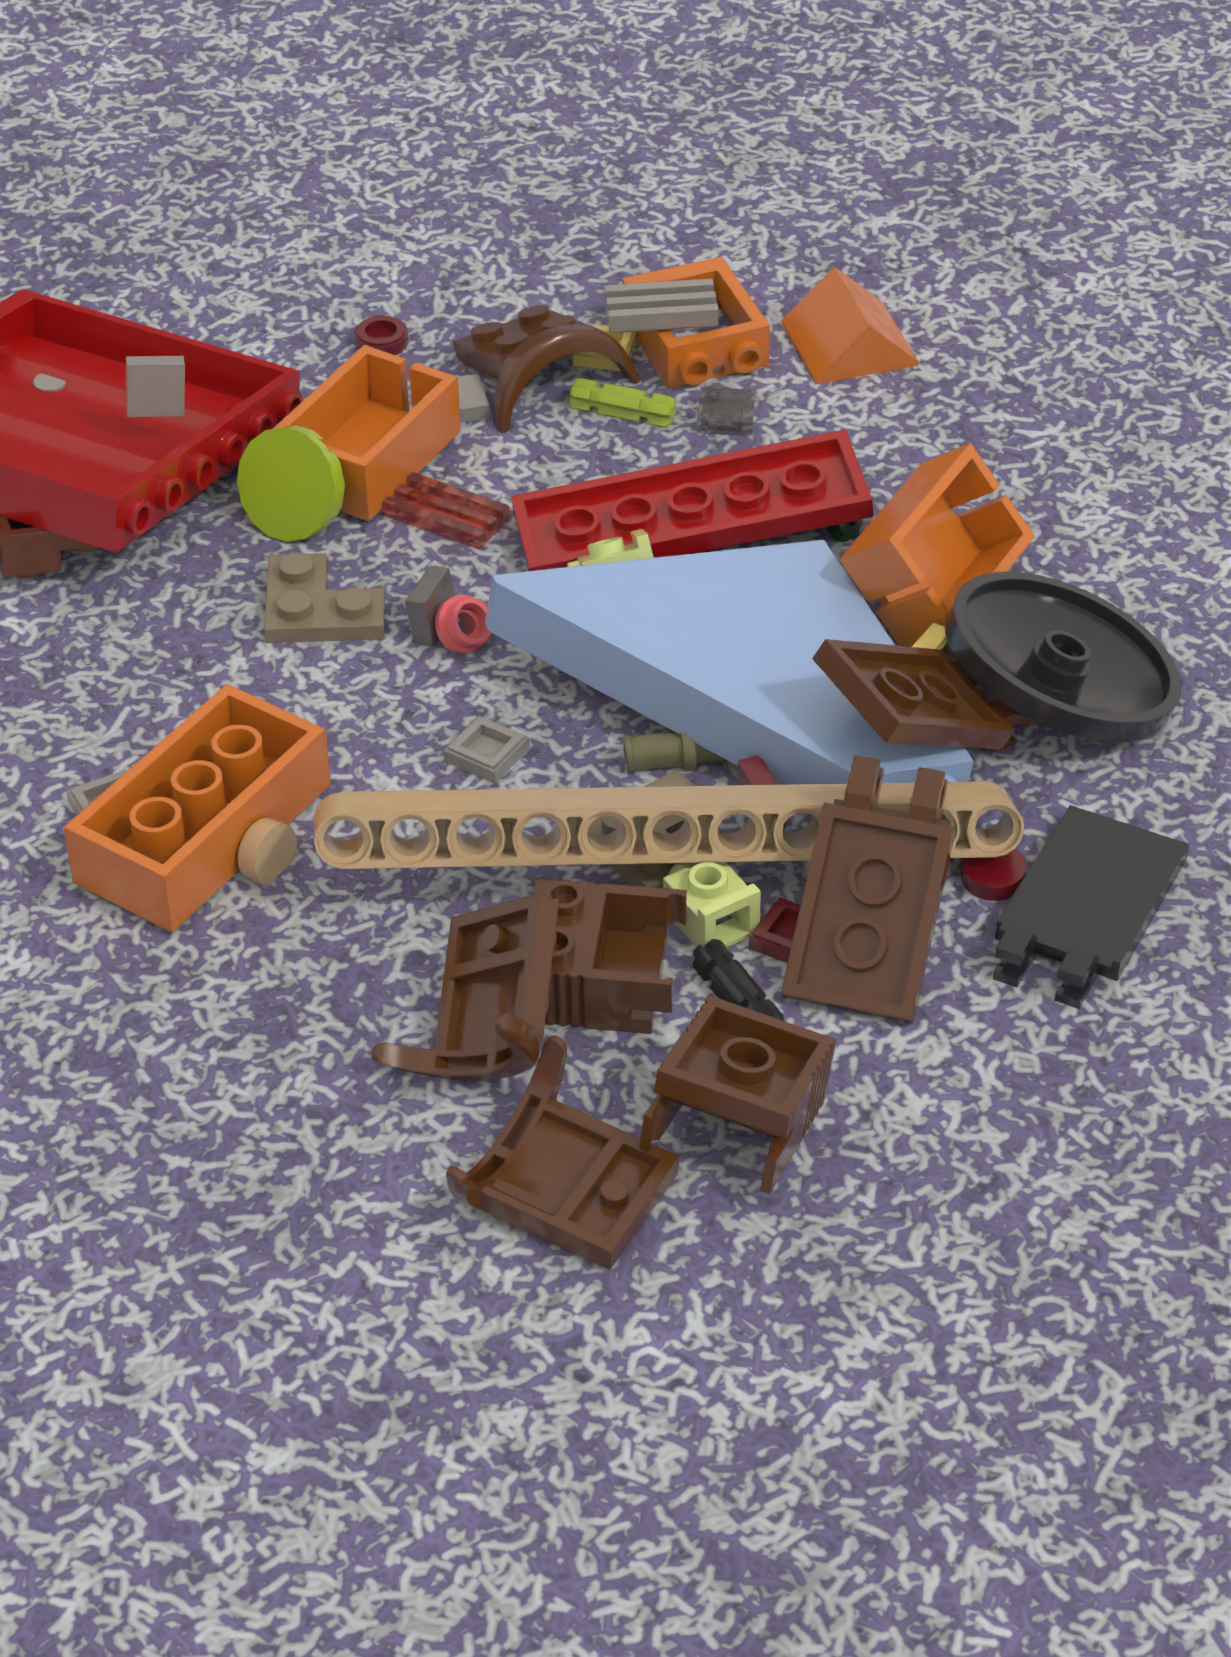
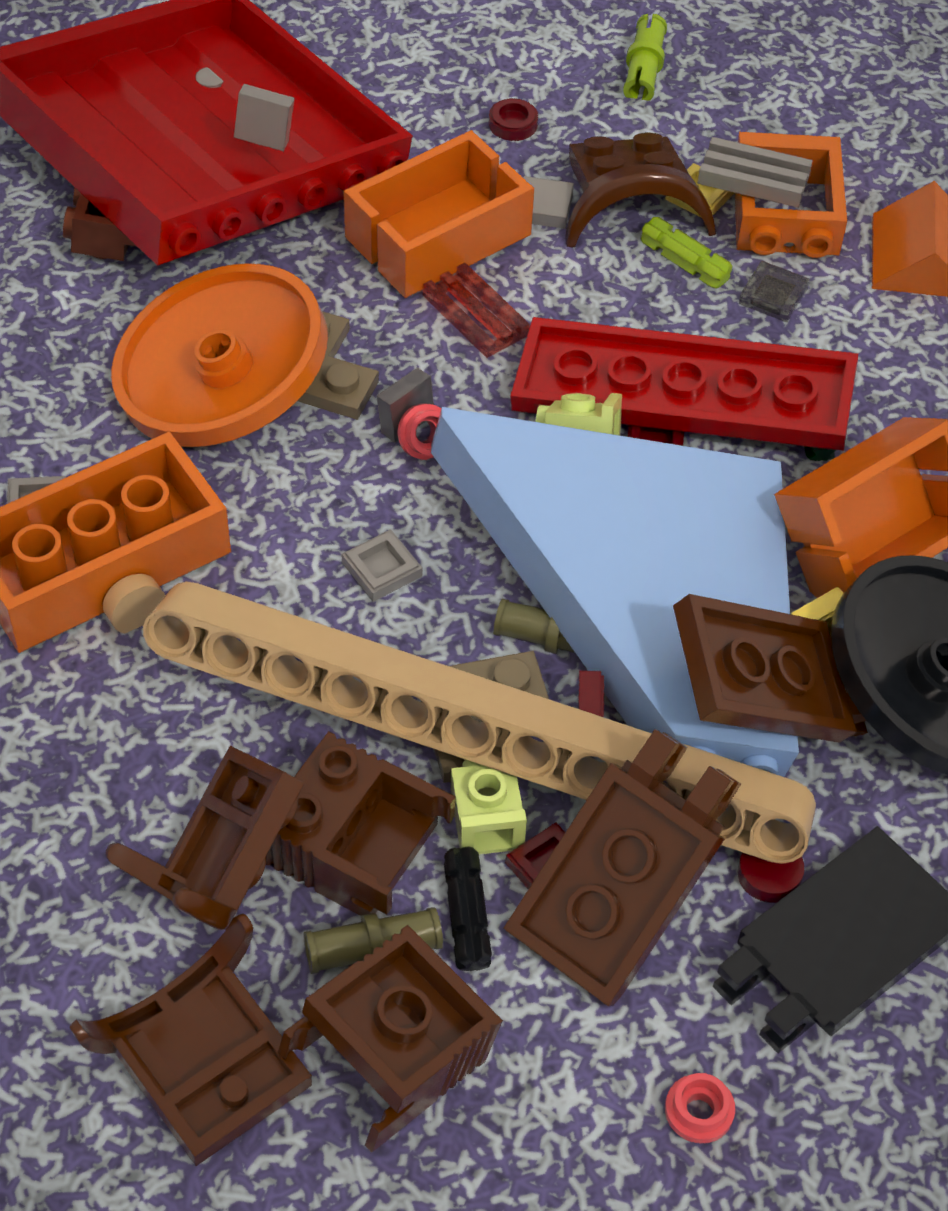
camera: 20 degrees right, 10 degrees up
(222, 608) = (220, 354): none -> orange dish
(290, 483) = (344, 243): lime tile -> none
(483, 245) = (645, 57): none -> lime pin
(648, 1049) = (351, 942): none -> olive pin
(1036, 1051) = (707, 1089): none -> coral plate

